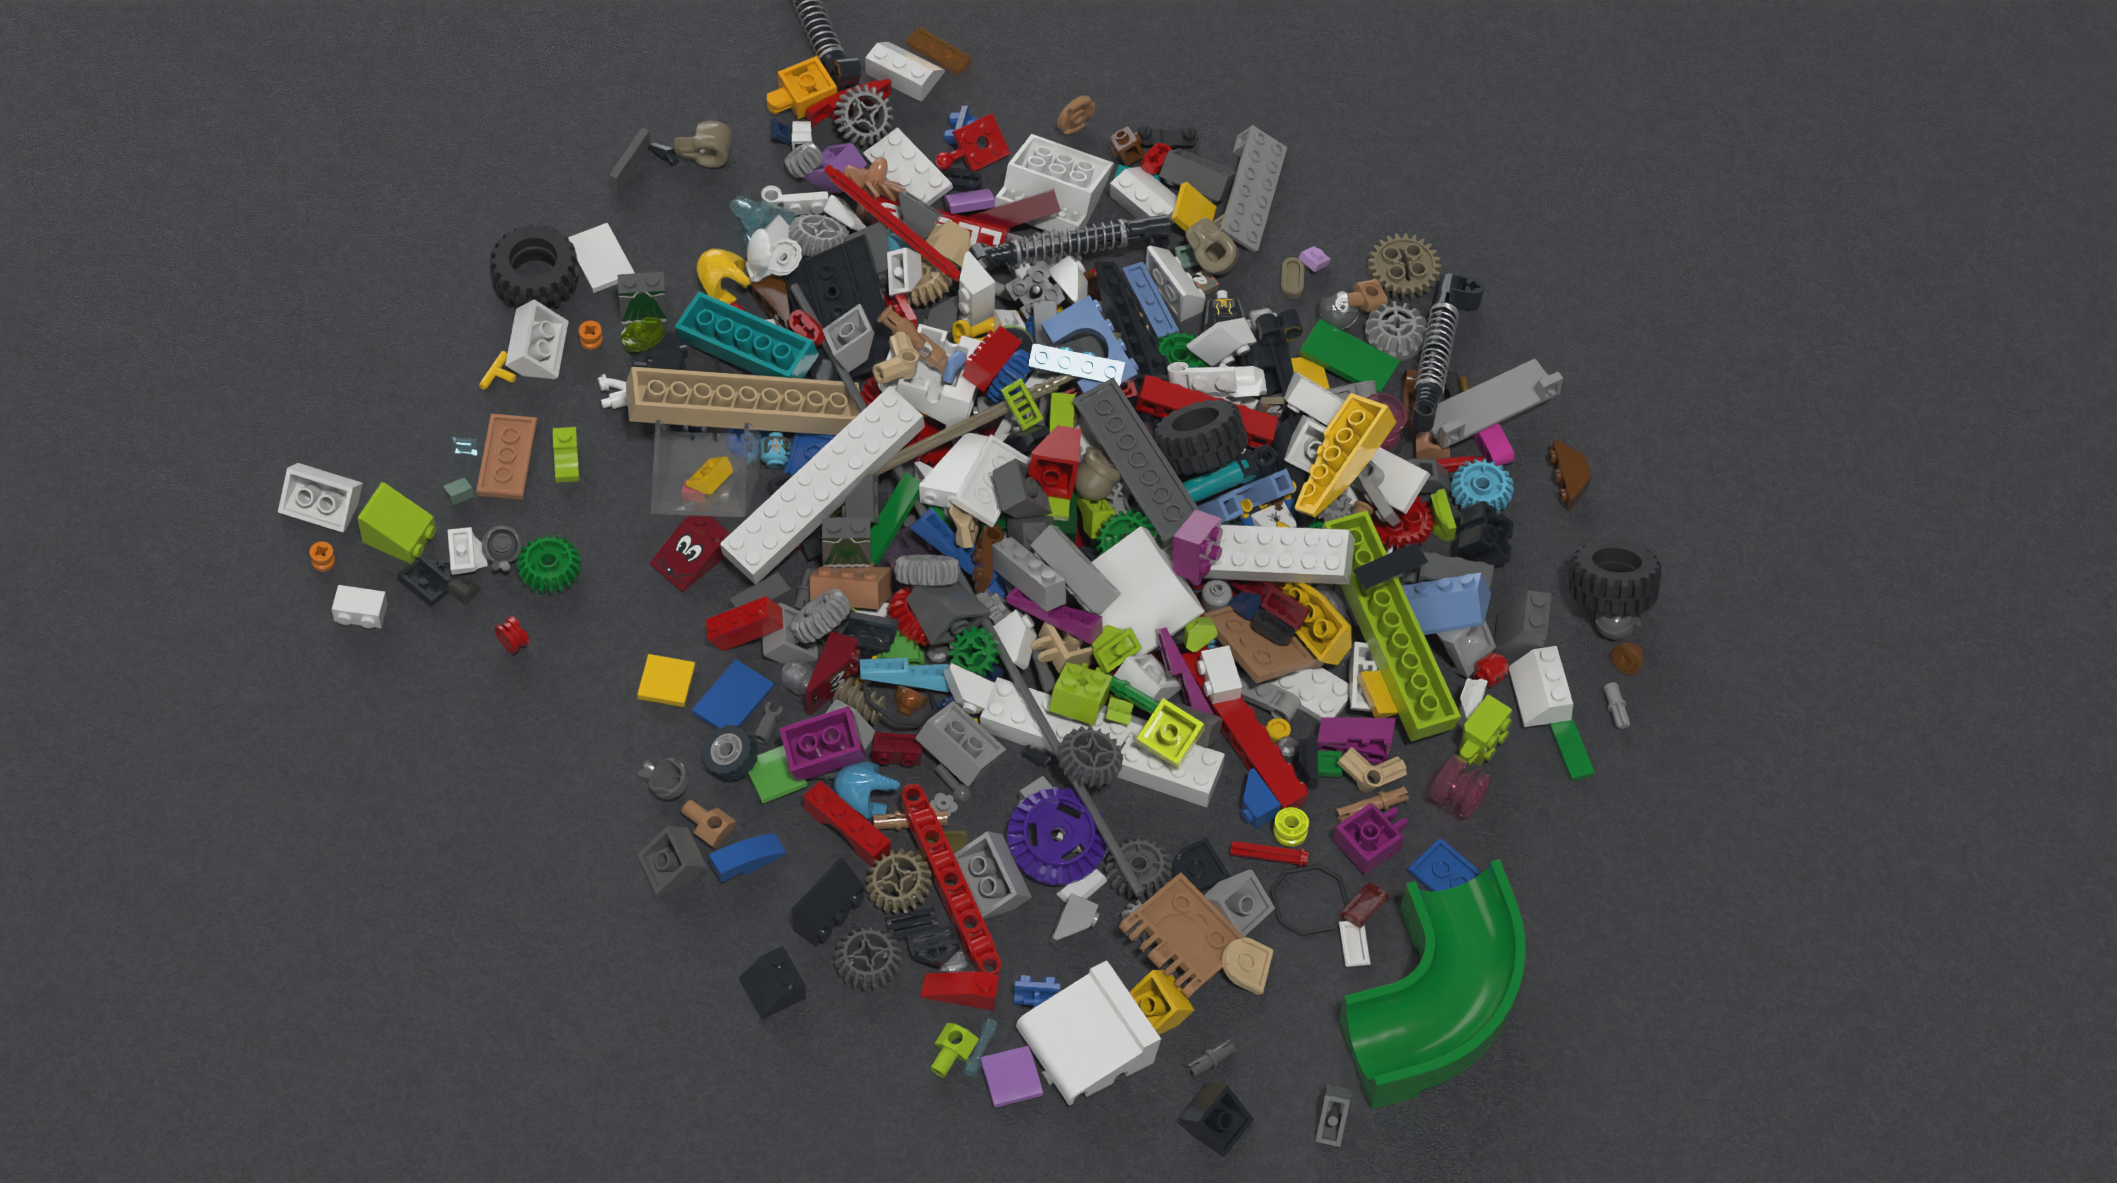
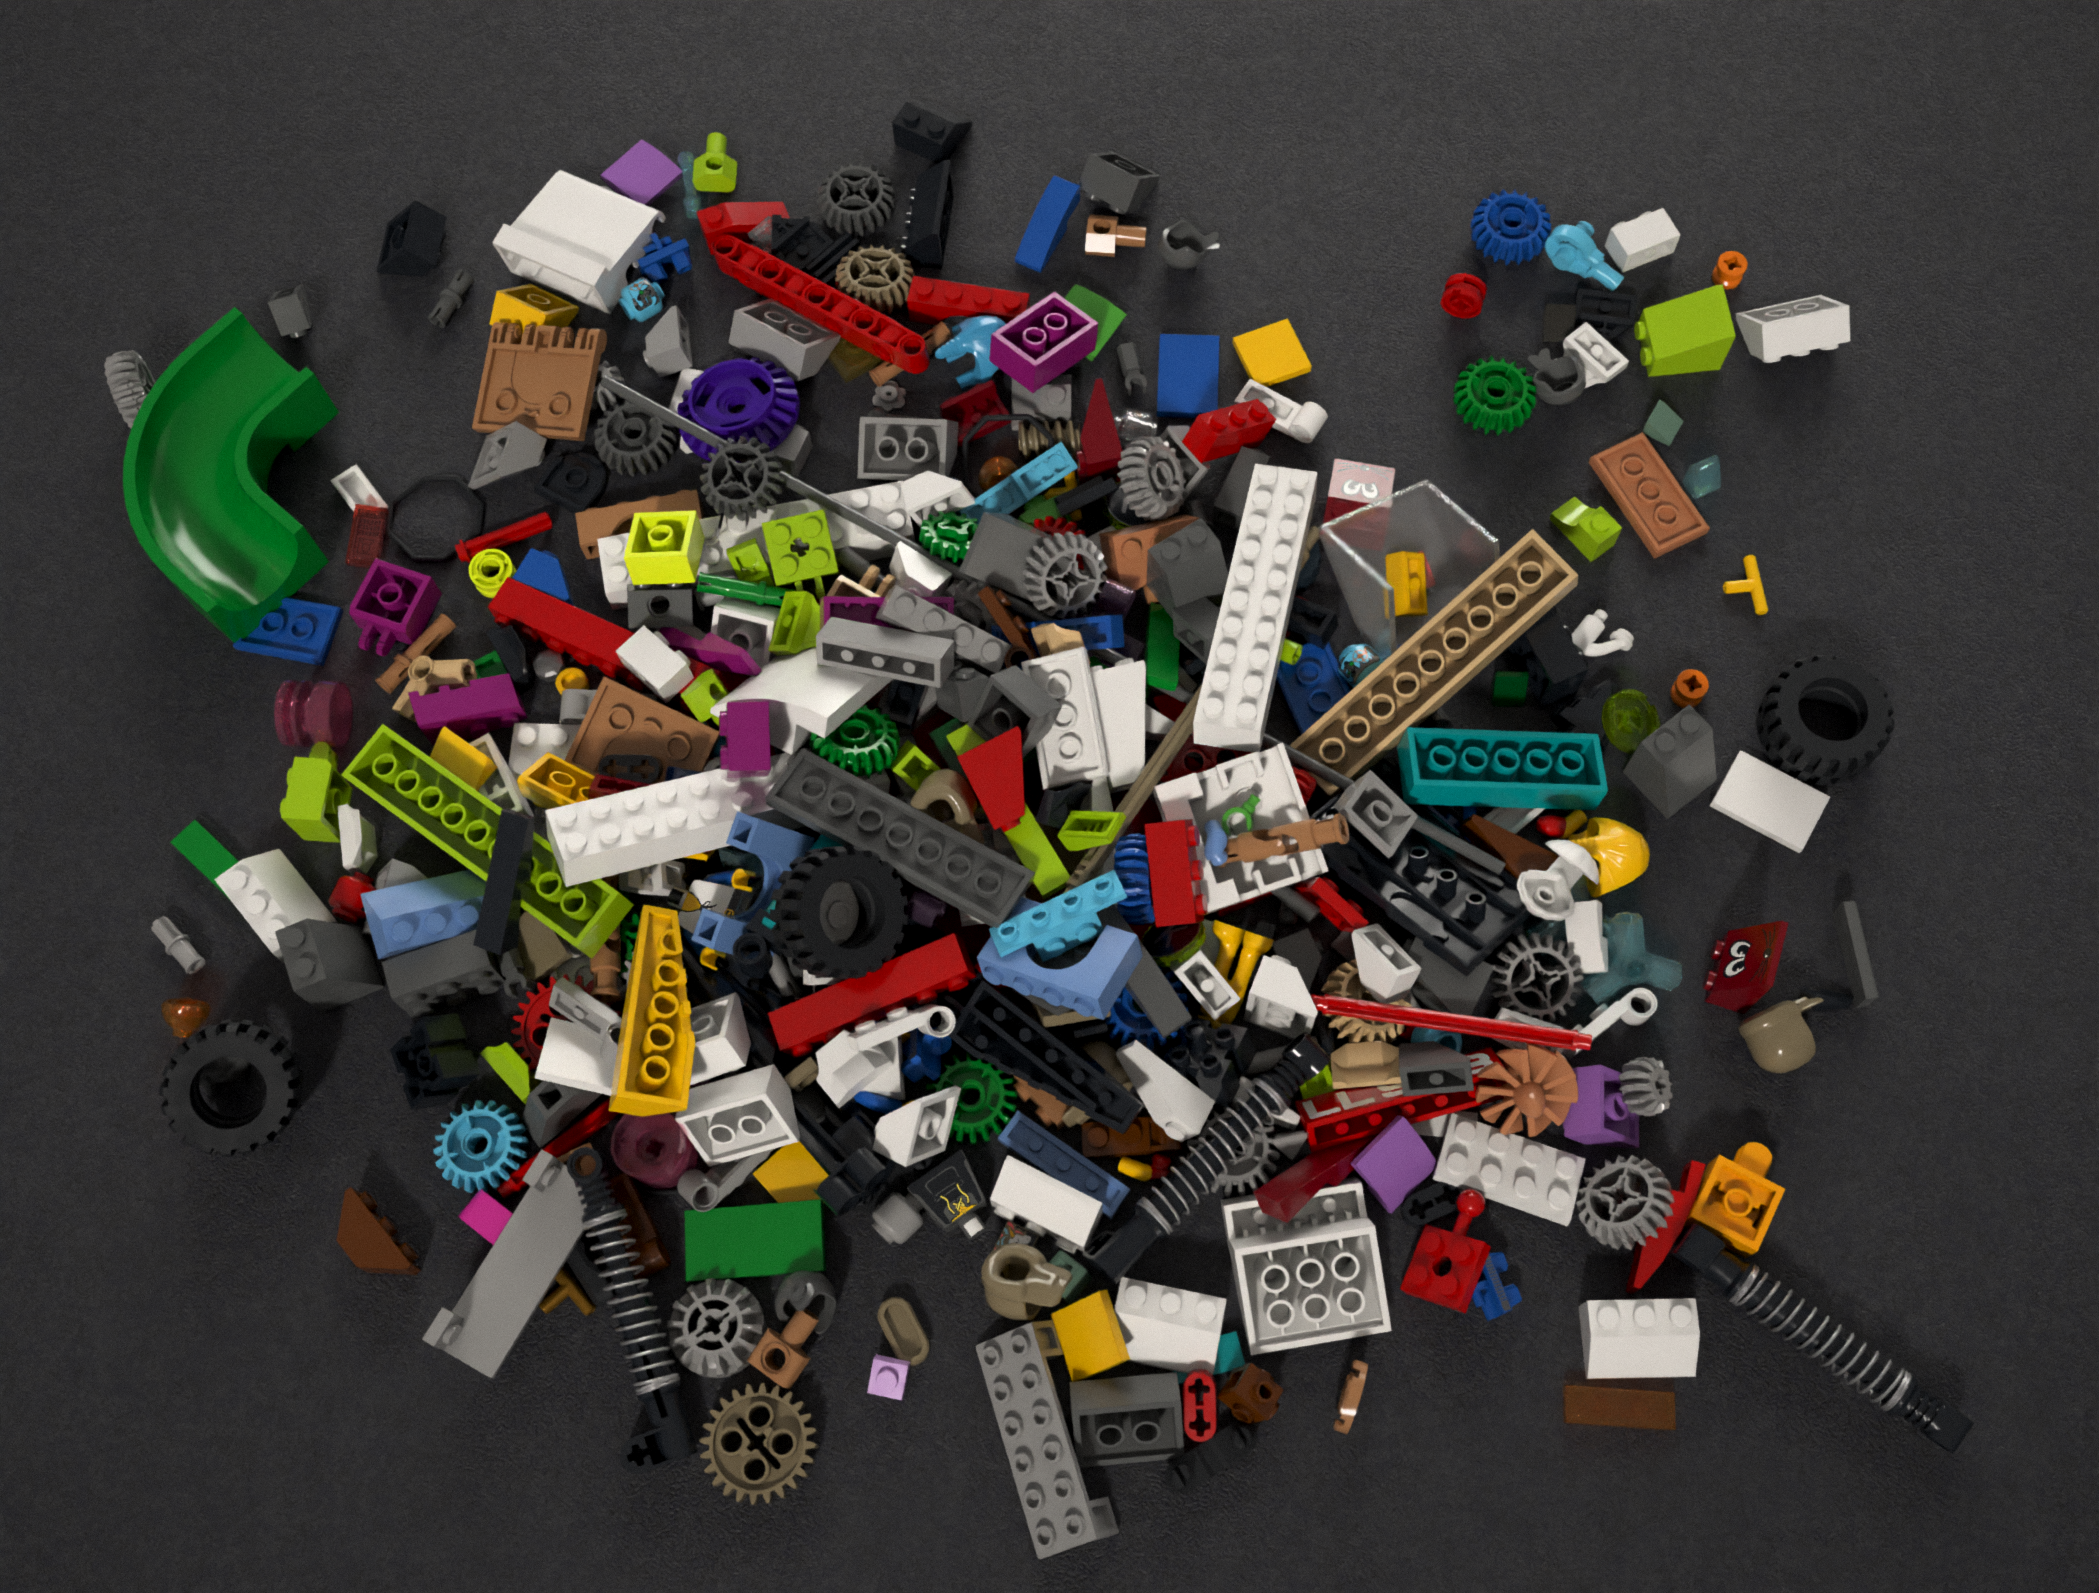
camera: 155 degrees right, 10 degrees up
(417, 617) = (1579, 254): none -> medium azure pin
(431, 680) = (1510, 227): none -> blue gear
(536, 341) = (1738, 640): white slope -> none
(694, 633) = (1292, 418): none -> white plate
(700, 174) = (1744, 965): none -> dark red slope
(740, 760) = (1141, 304): black wheel -> none
(780, 132) = (1711, 1123): dark blue slope -> none
(801, 133) = (1680, 1132): white leg -> none
(809, 324) = (1441, 816): red beam -> none
(902, 365) = (1271, 755): tan piece -> none
(929, 375) = (1246, 809): none -> bright green piece
(1071, 969) = (641, 299): none -> medium azure head
(1197, 814) = (617, 519): none -> medium nougat arch
(1247, 964) = (460, 403): tan tile -> none
(1481, 1099) = (128, 382): none -> light grey gear

